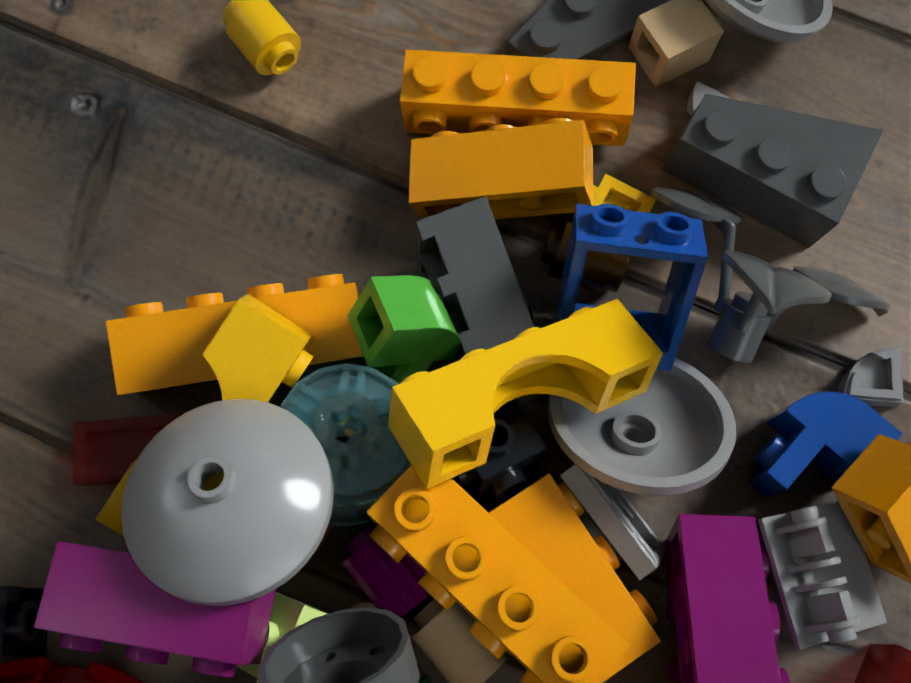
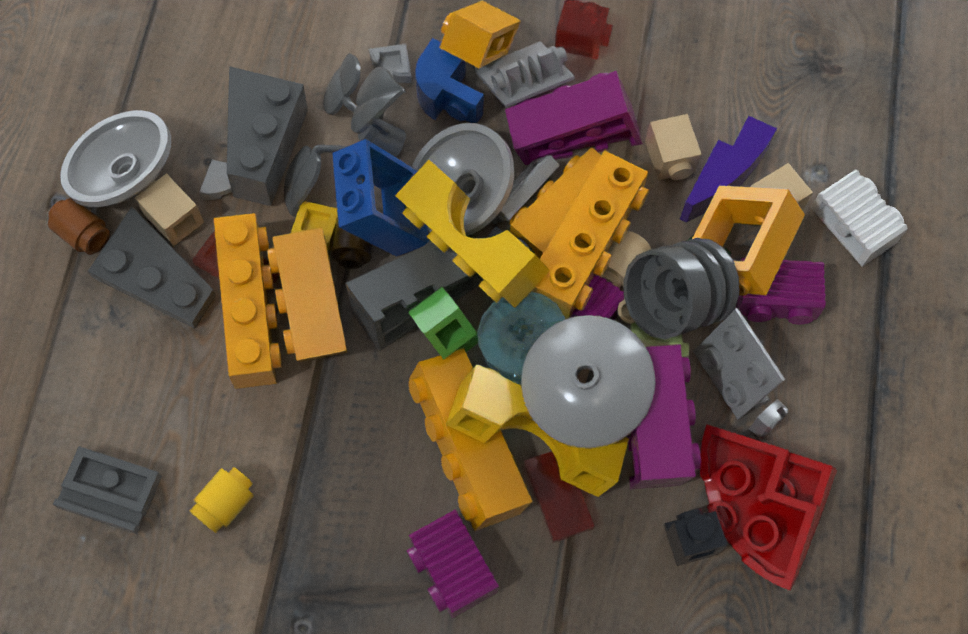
camera: 100 degrees left, 5 degrees down
(81, 280) = (453, 565): none -> magenta brick

